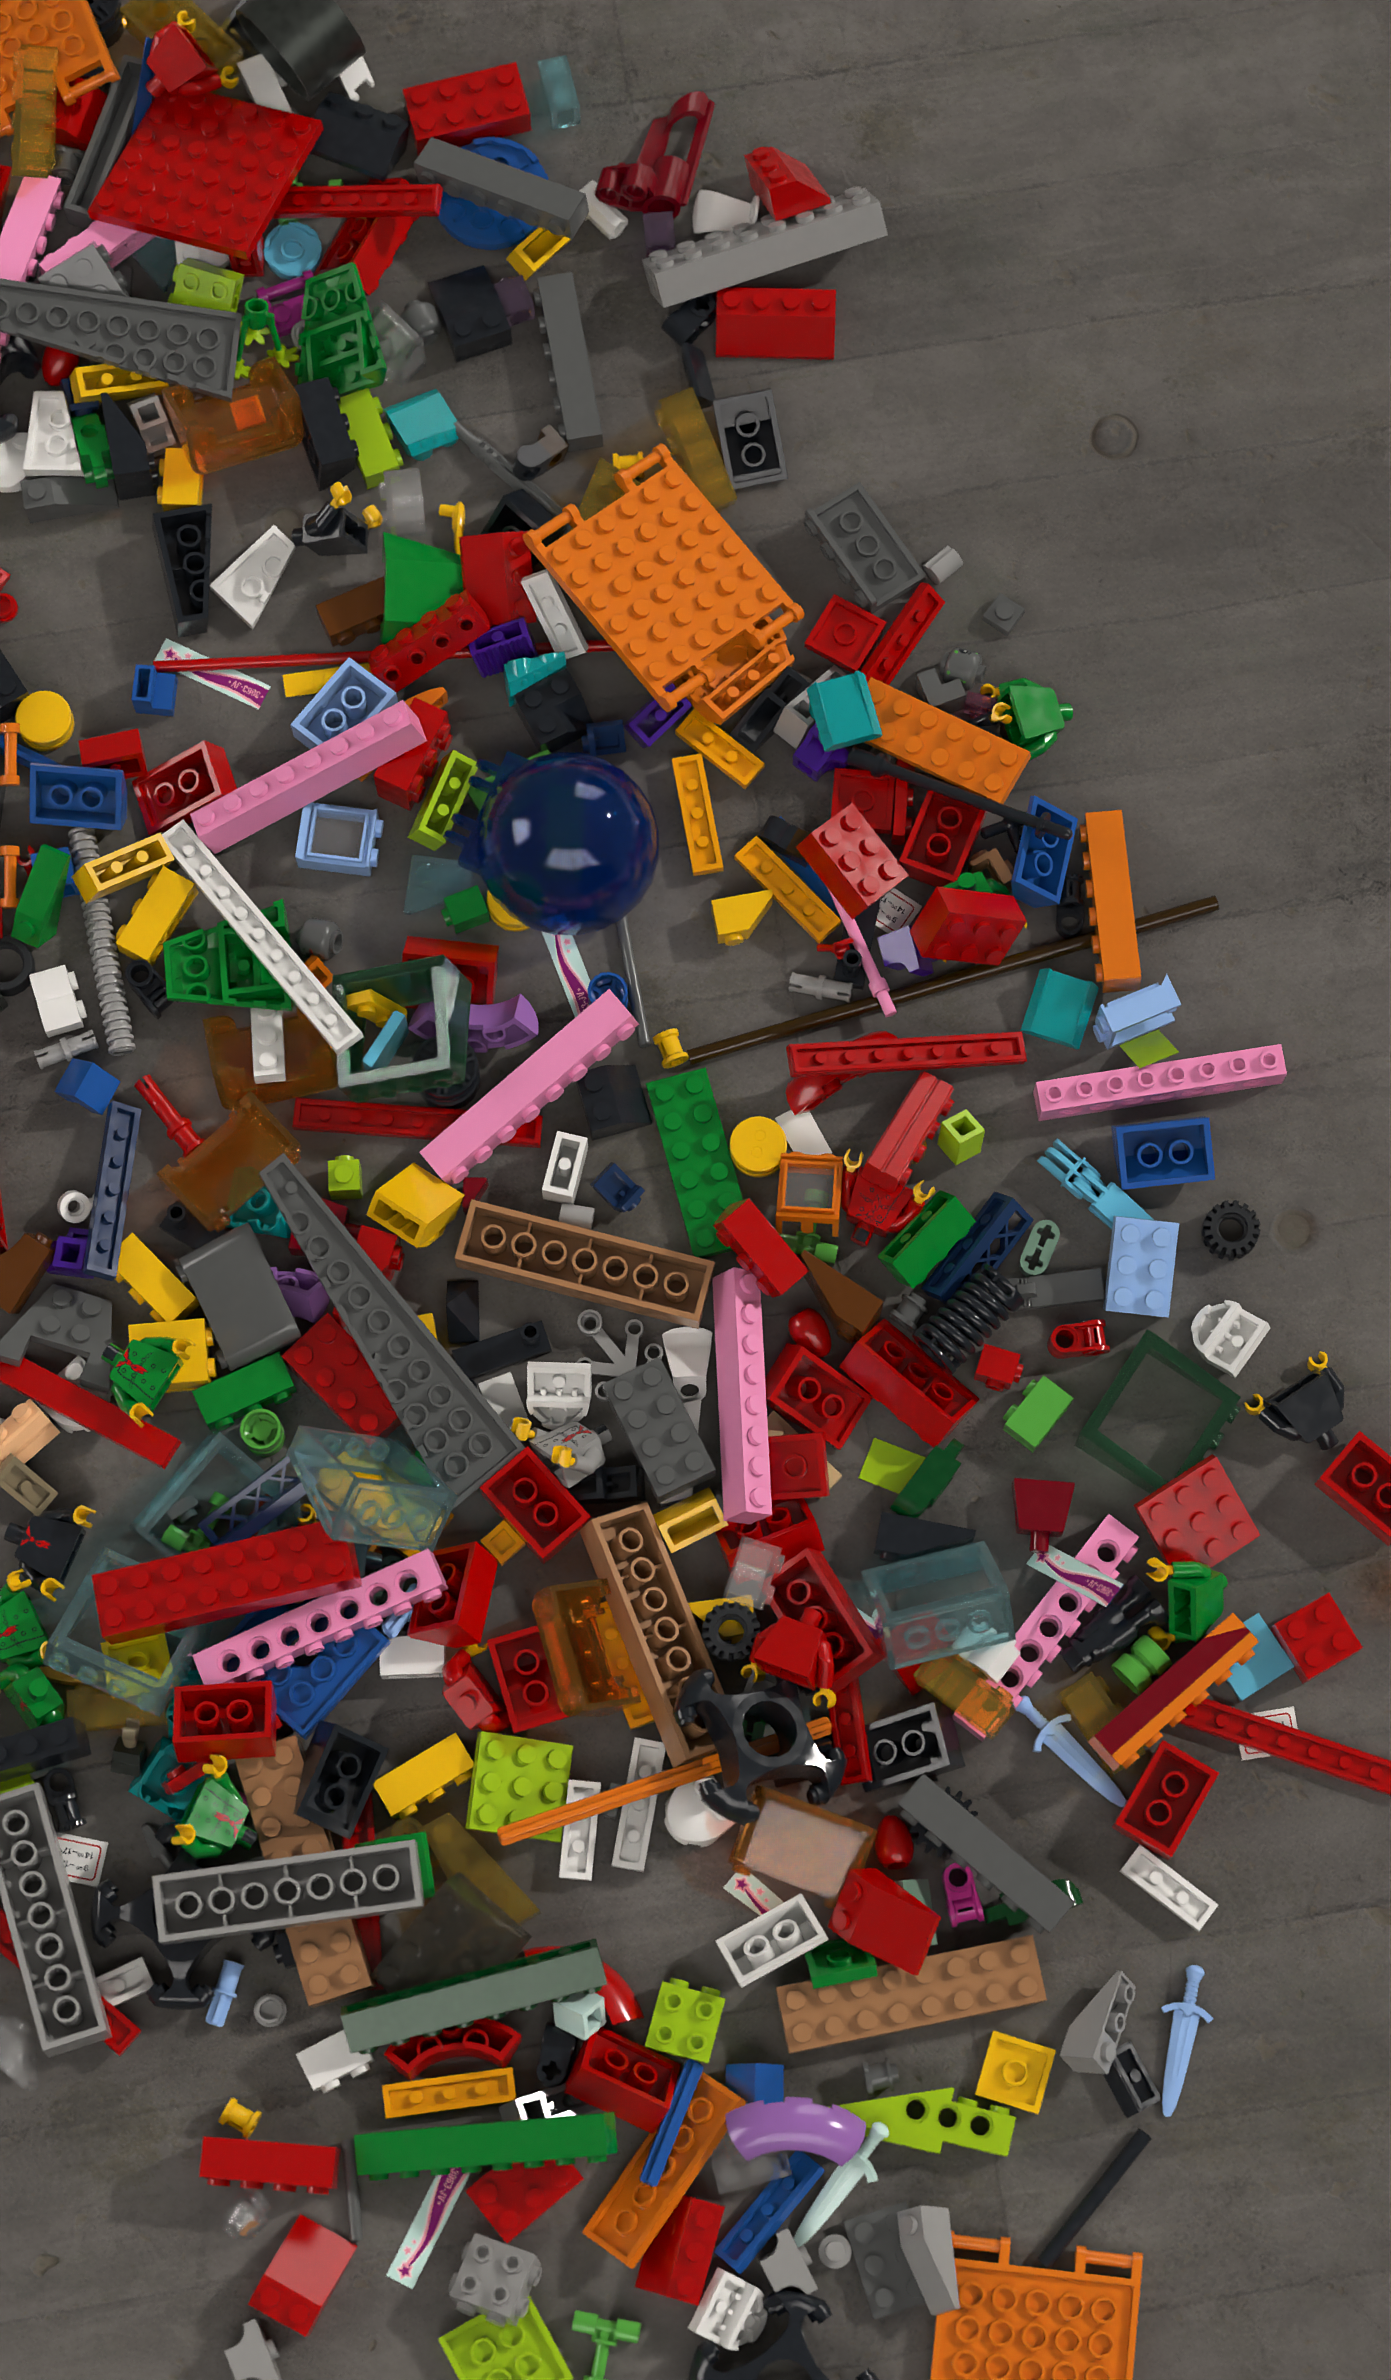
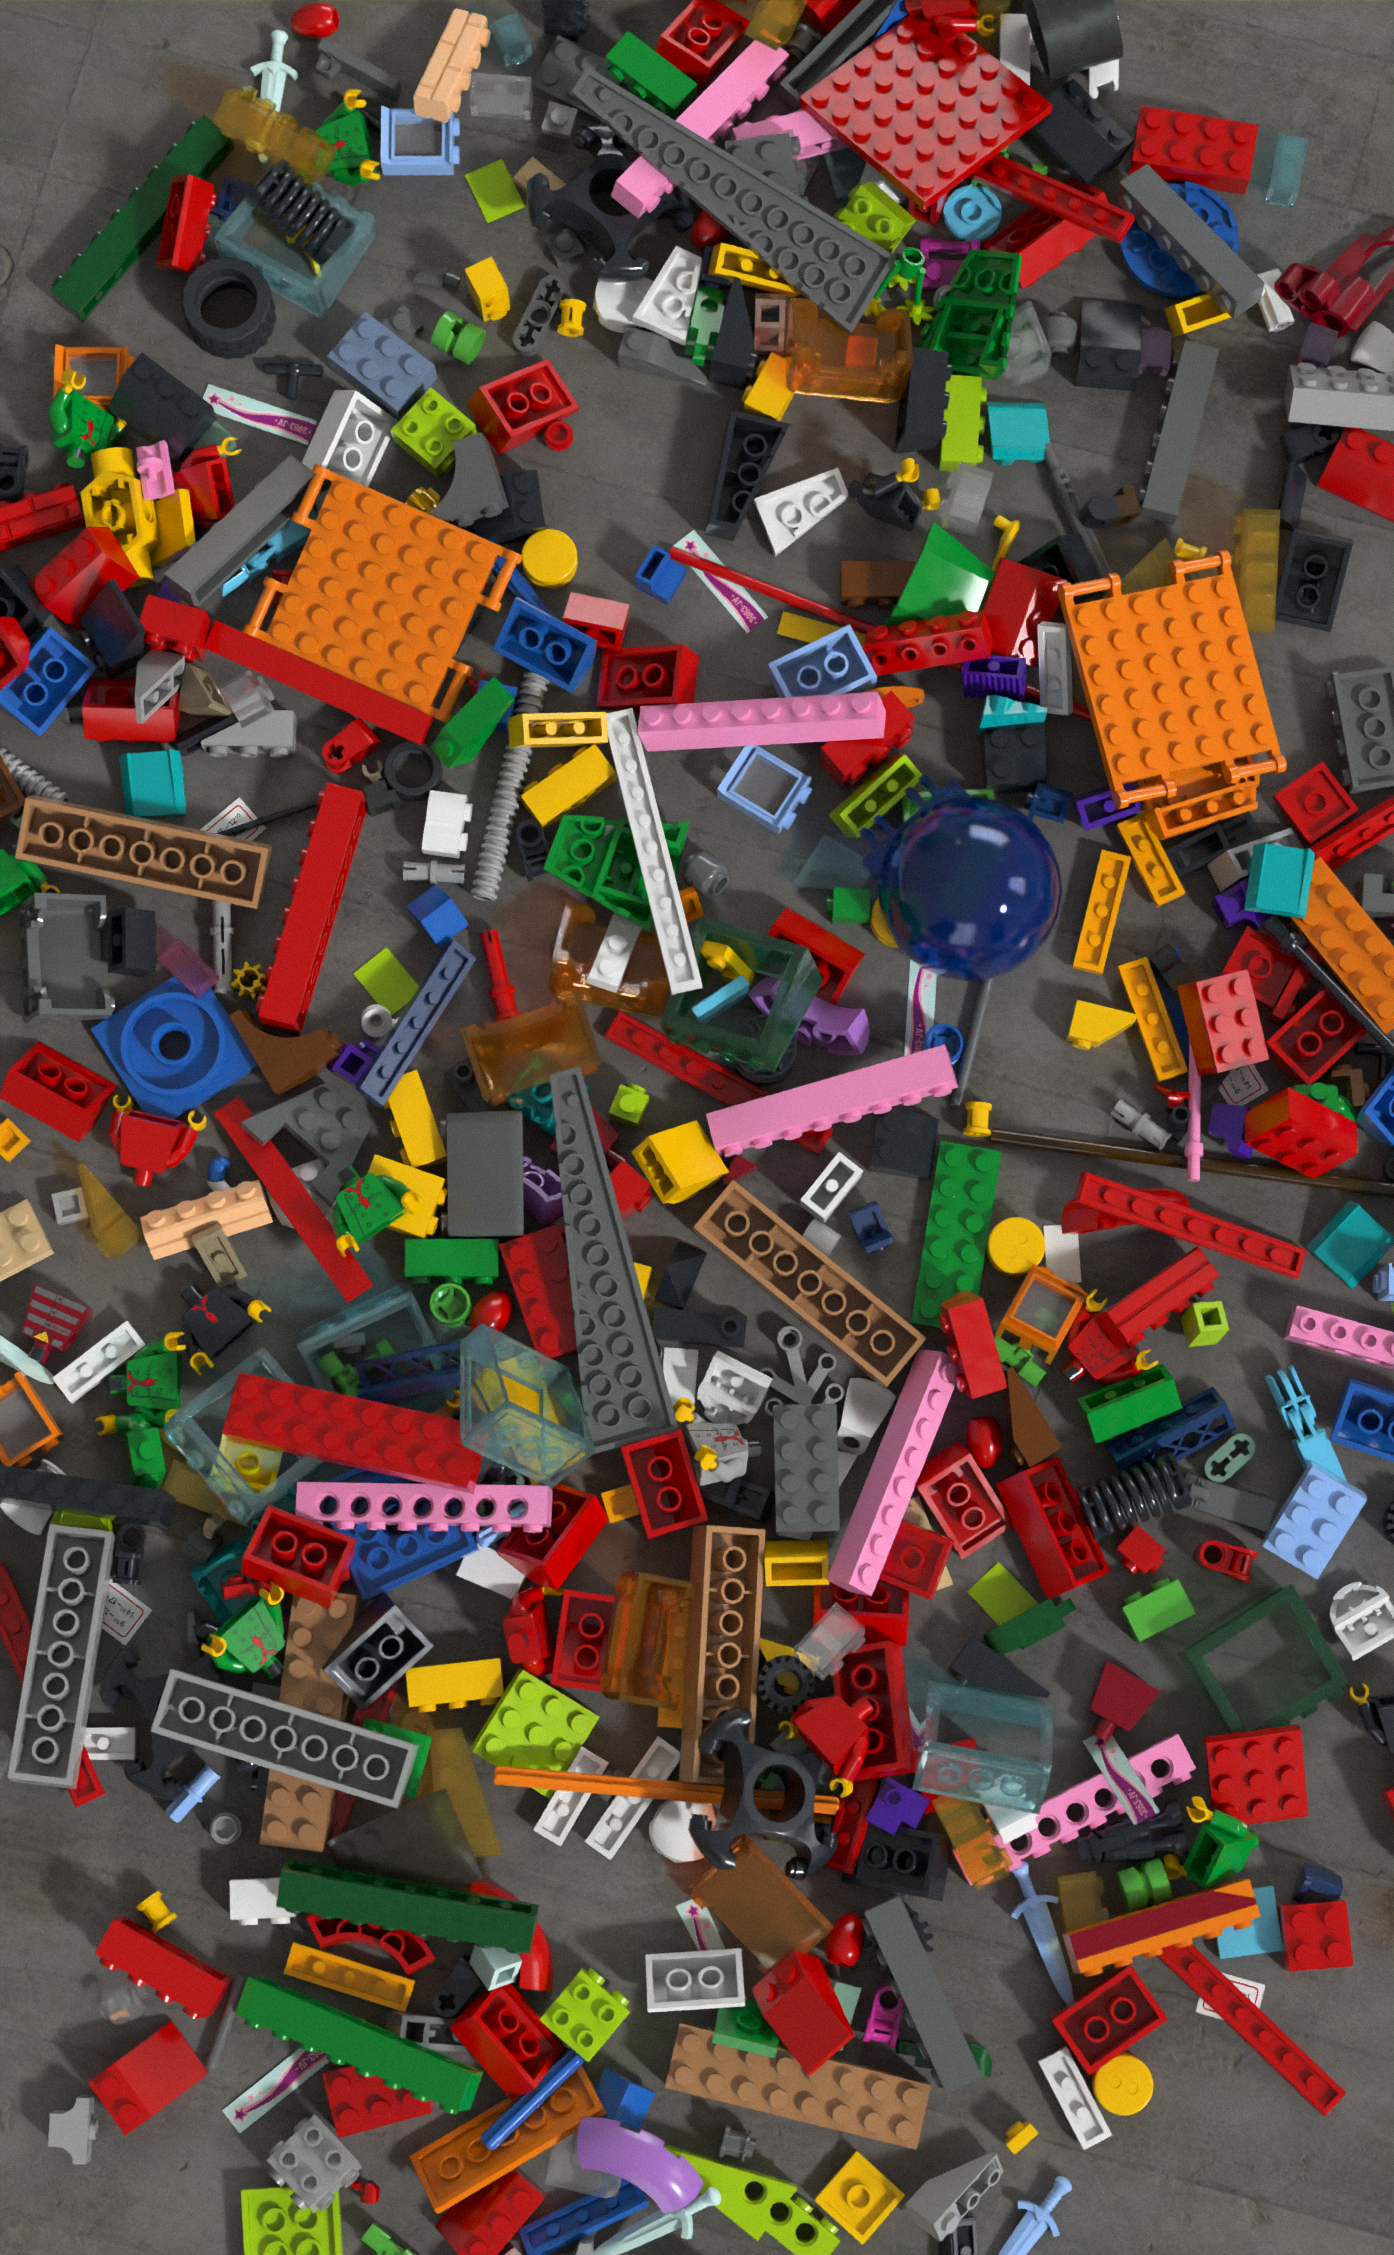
camera: 25 degrees right, 5 degrees up
(67, 1167) = (387, 981): none -> lime sticker
(304, 1413) = (492, 1311): none -> red animal
(559, 2284) = (369, 2191): none -> red hand
(884, 1697) = (896, 1806): none -> dark purple brick
(909, 1312) = (1083, 1462): dark grey brick -> none
(1134, 1945) = (1019, 2135): none -> yellow plate
(1206, 1855) = (1123, 2085): none -> yellow head
(1296, 1589) = (1318, 1881): none -> dark blue tile

